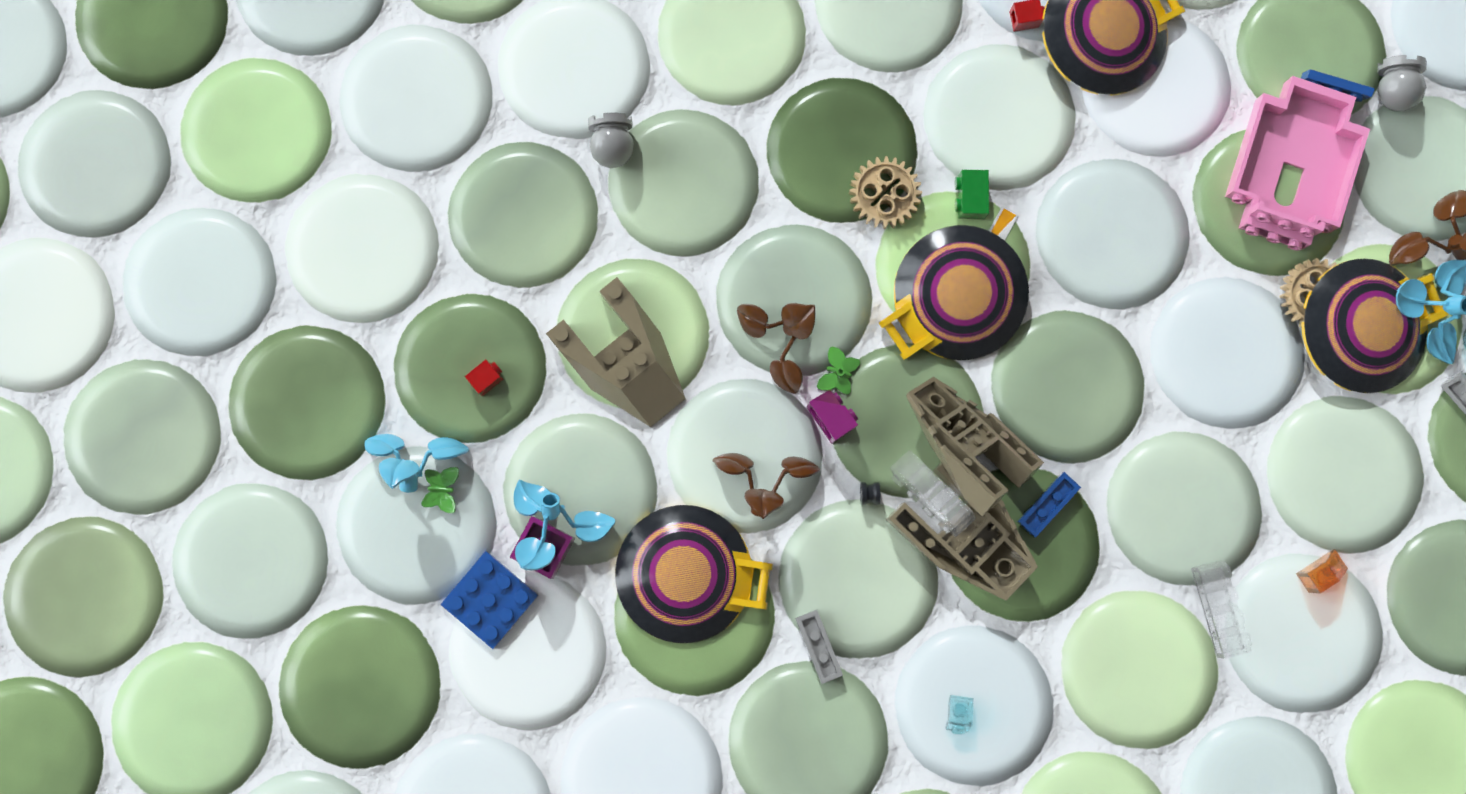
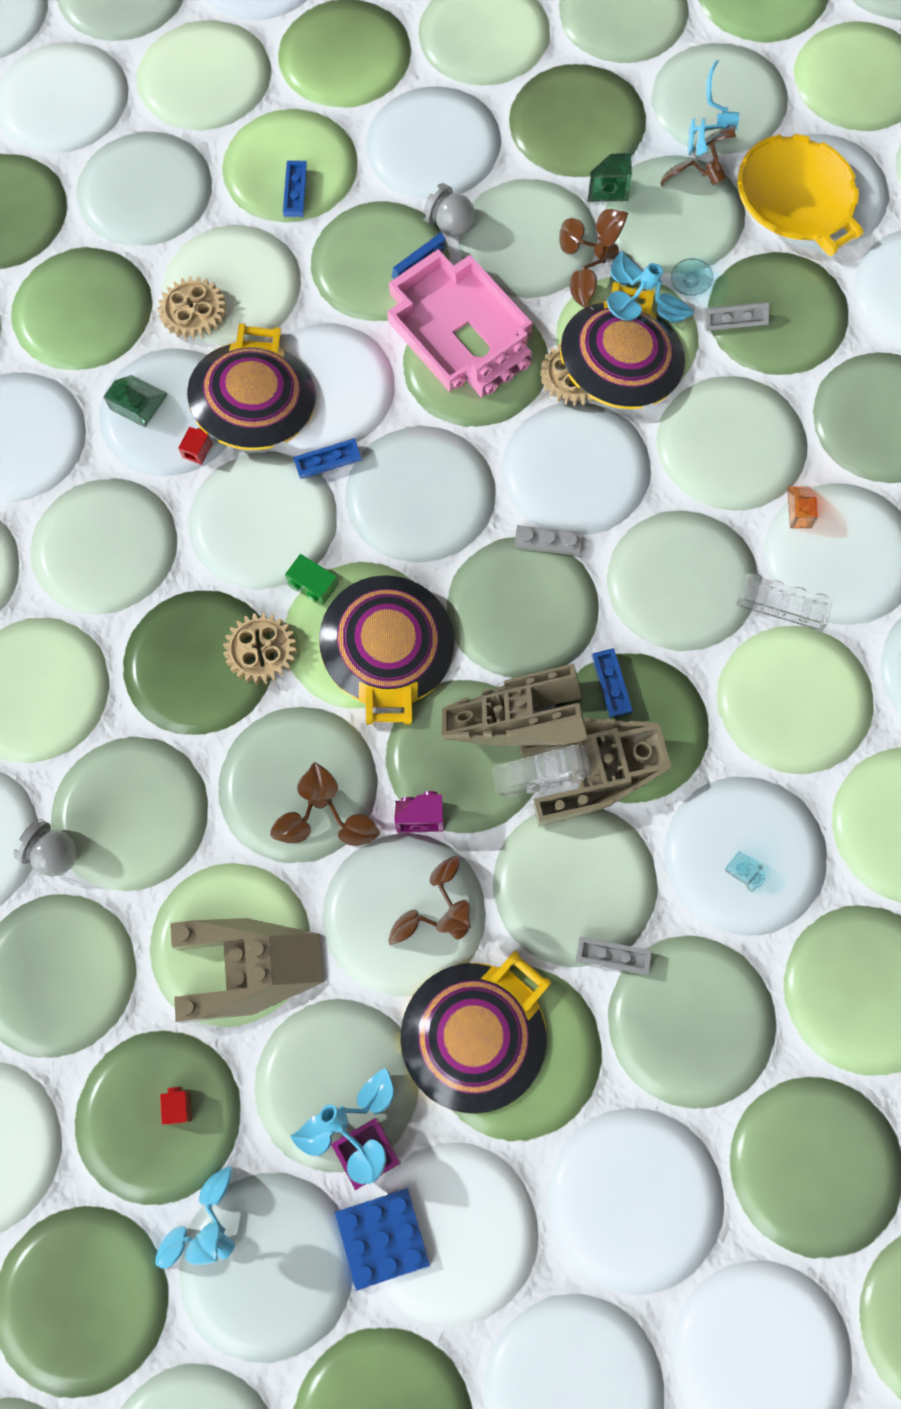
camera: 50 degrees left, 10 degrees down
(439, 488) = (248, 1219): bright green piece -> none
(841, 371) = (386, 784): bright green piece -> none
(870, 493) = (507, 825): black wheel -> none
(1003, 222) = (351, 570): sticker -> none
(1090, 134) = (327, 458): none -> blue plate
(1142, 370) = (548, 540): none -> light grey plate

